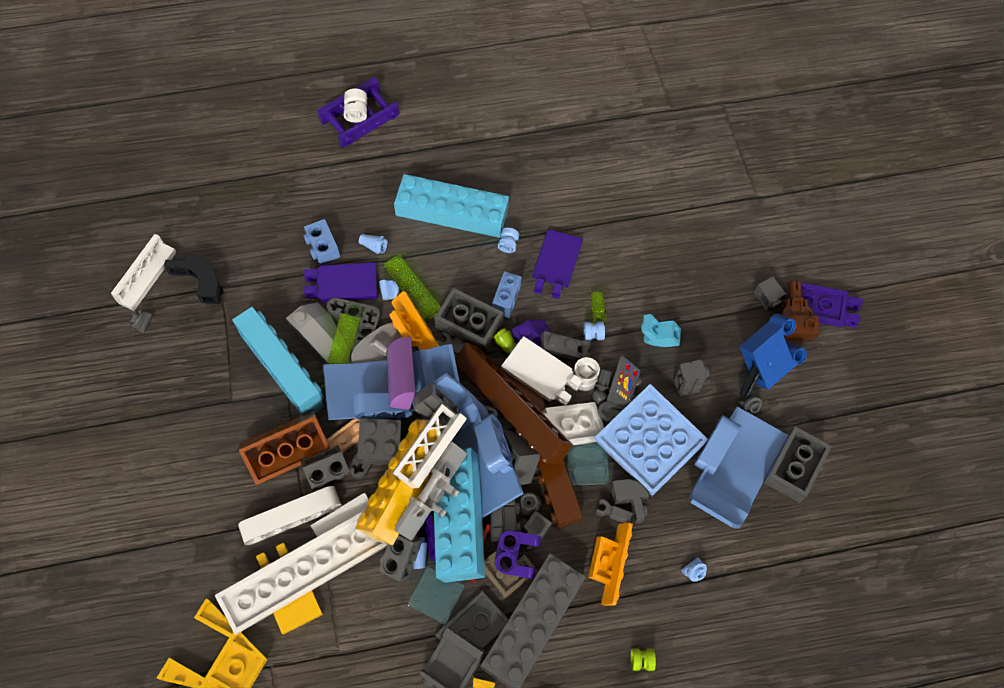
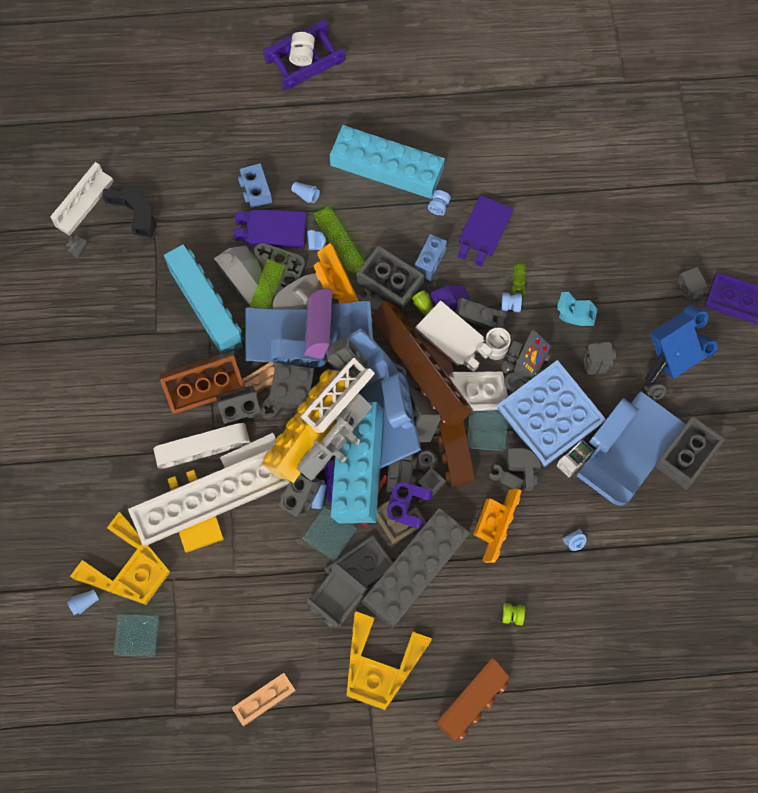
camera: 10 degrees right, 5 degrees up
(682, 483) = (575, 458): none -> leg
(797, 308) = (715, 304): reddish brown brick -> none

